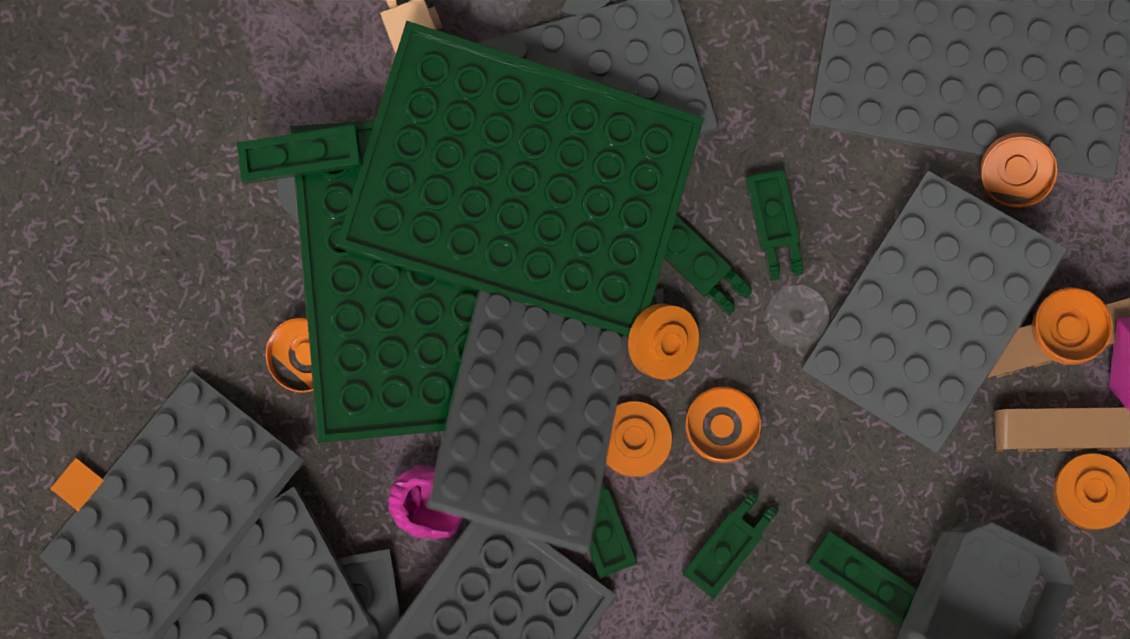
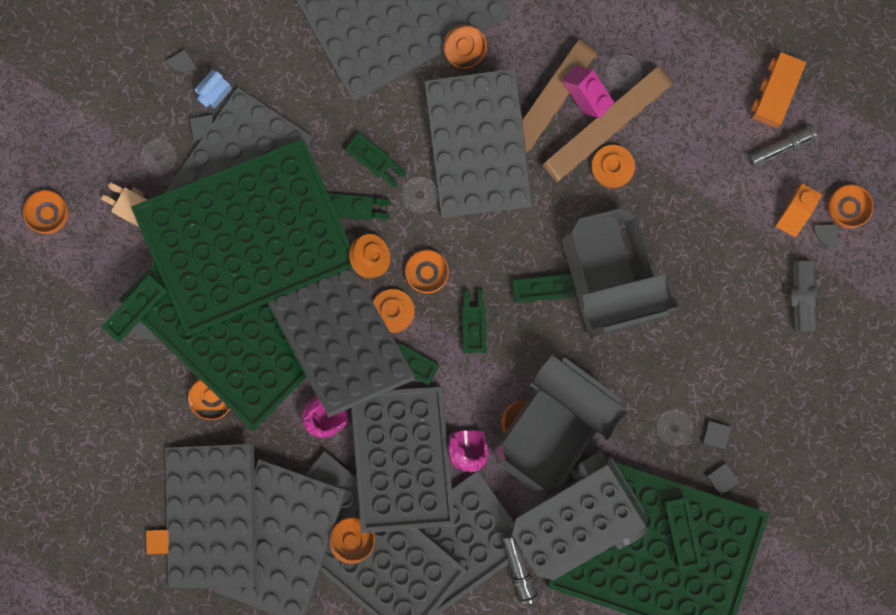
camera: 50 degrees left, 5 degrees up
(1072, 326) = (545, 100): orange piece -> none

